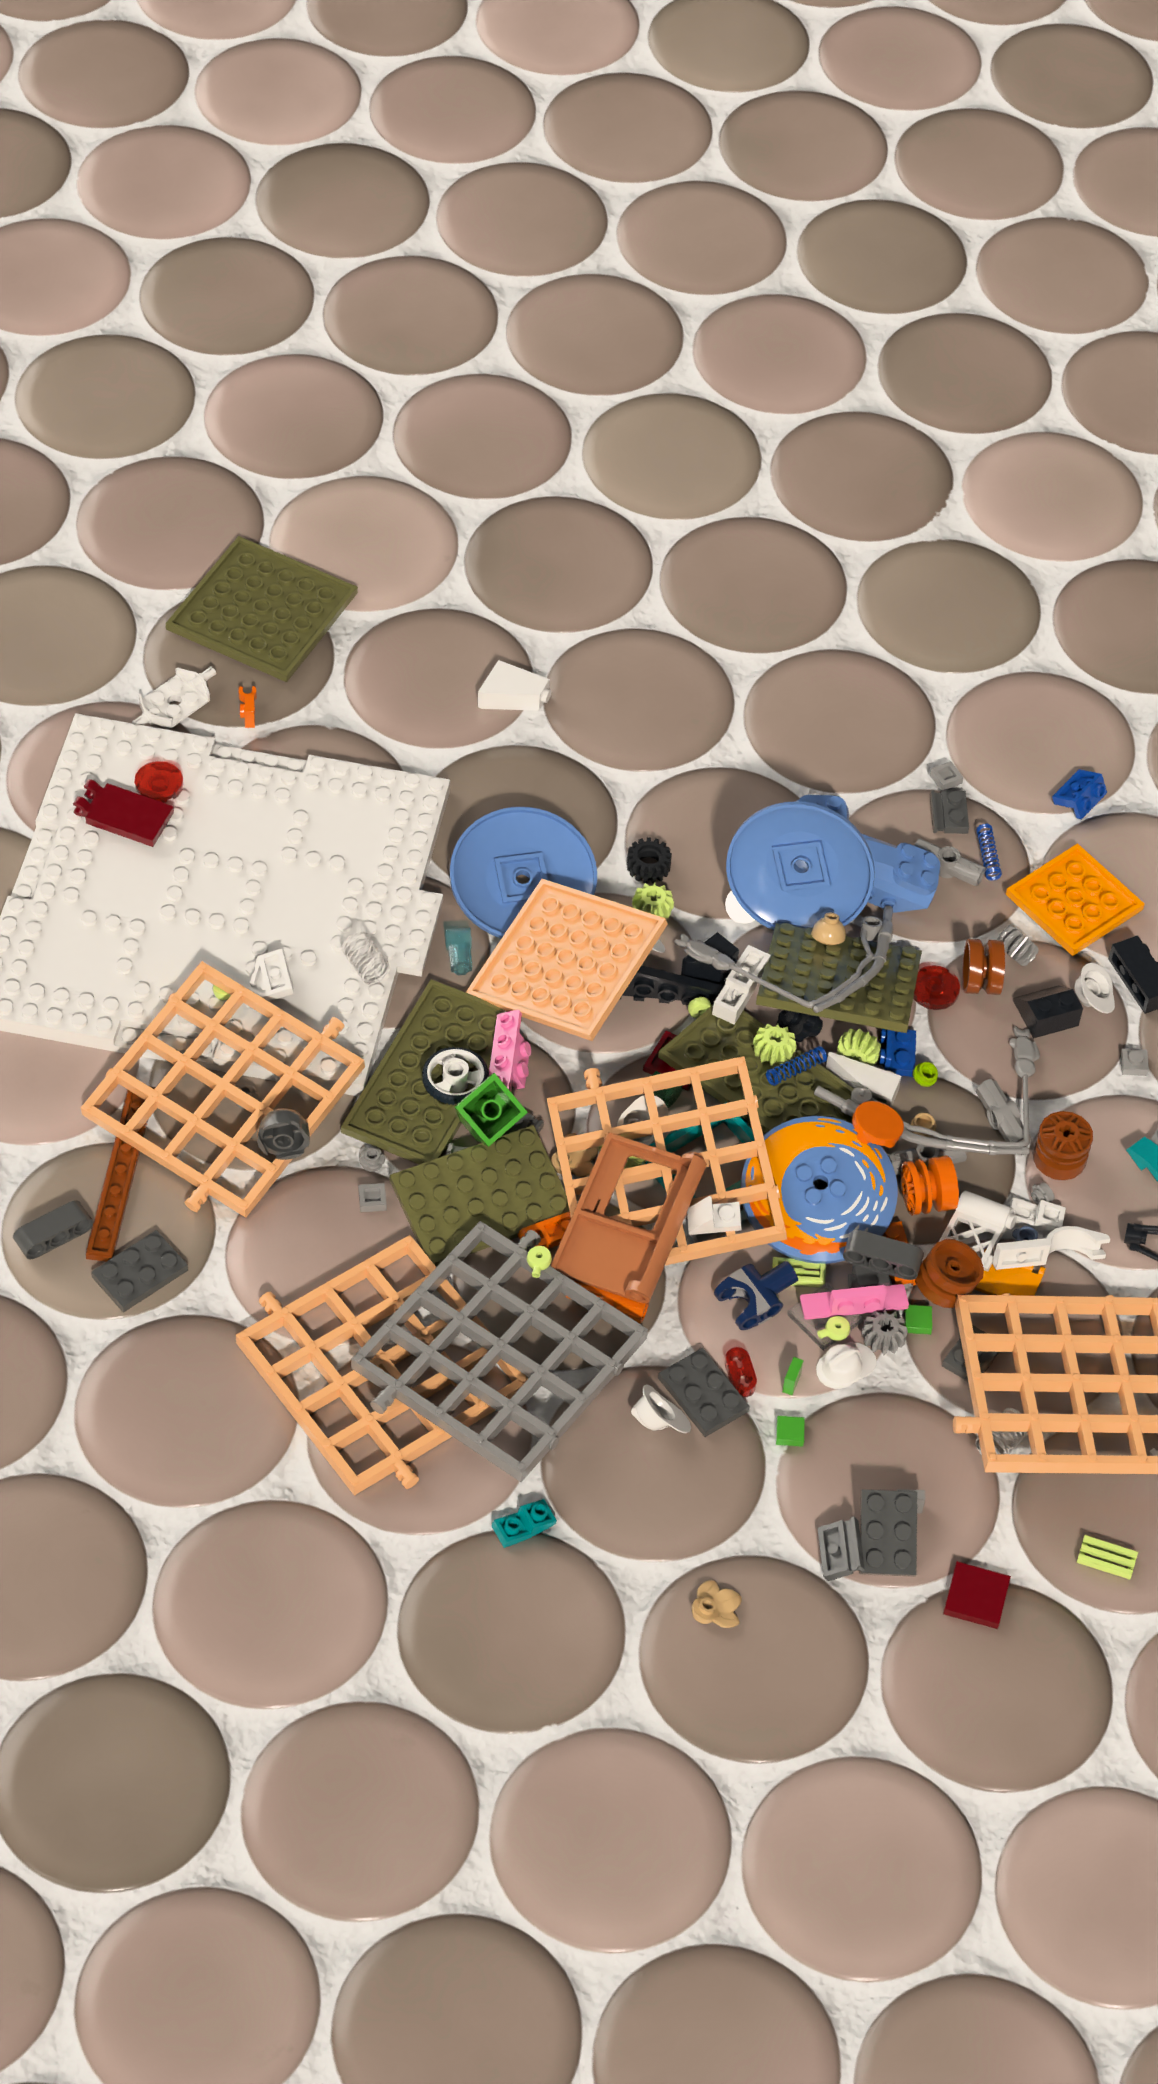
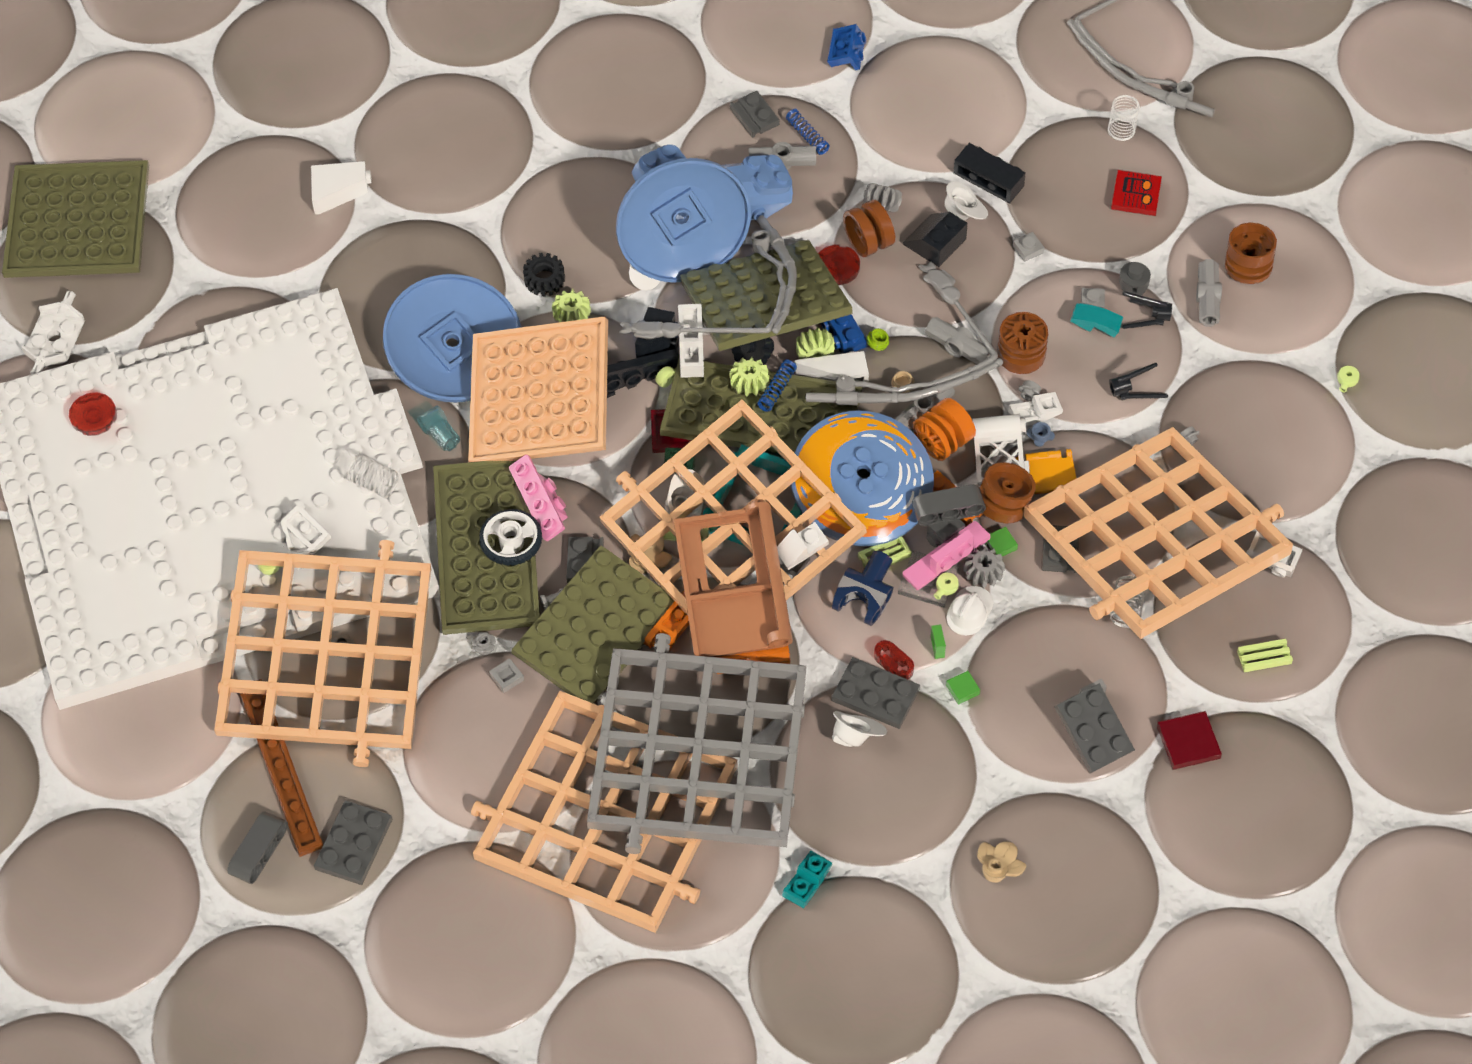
camera: 25 degrees left, 5 degrees up
(123, 812) = (80, 455): dark red tile -> none
(248, 709) = (124, 311): orange plate -> none
(283, 1134) = (406, 661): dark grey cylinder -> none
(489, 1110) = (566, 553): bright green slope -> none
(539, 1259) = (683, 655): yellowish green piece -> none
(829, 930) = (730, 259): tan brick -> none
(840, 1548) = (1066, 761): plate -> none
(877, 1124) = (877, 400): orange tile -> none
(946, 776) = (734, 85): light grey plate -> none
(1036, 1251) = (1059, 438): white piece -> none
(1075, 899) = (899, 137): light orange plate -> none

